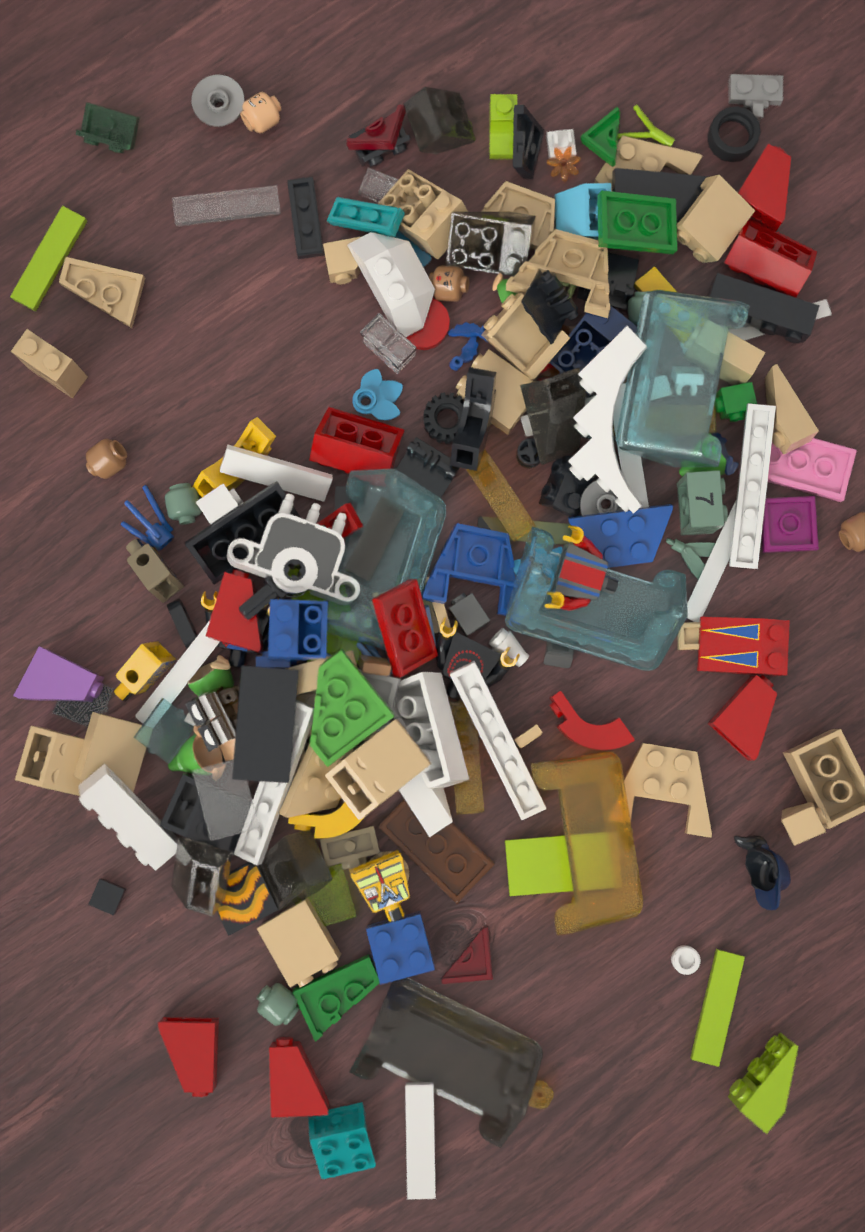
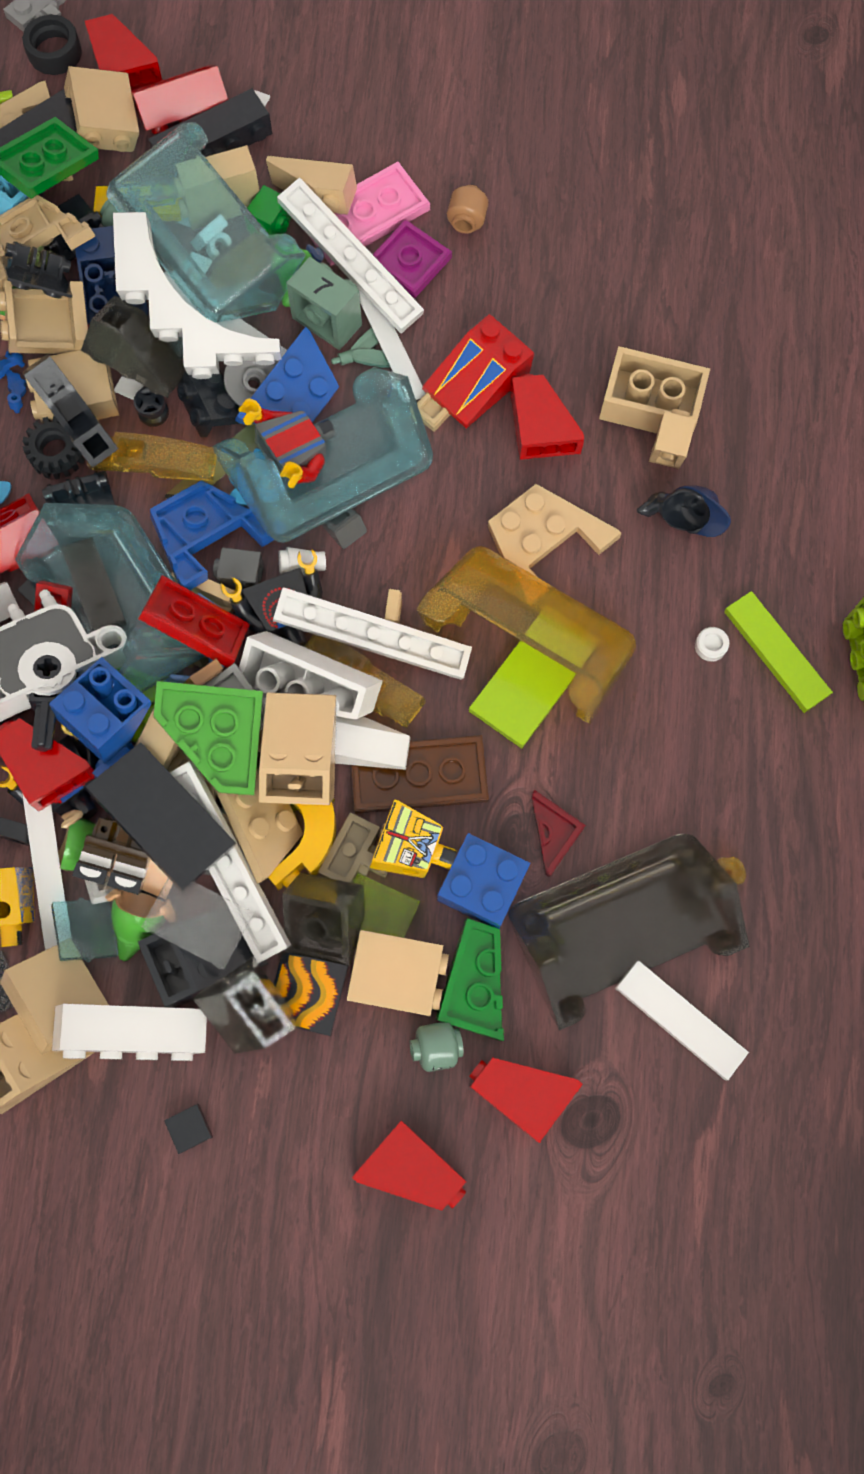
camera: 45 degrees left, 10 degrees down
(341, 1141) = (621, 1097): teal bracket -> none
(597, 737) = (432, 561): red arch -> none

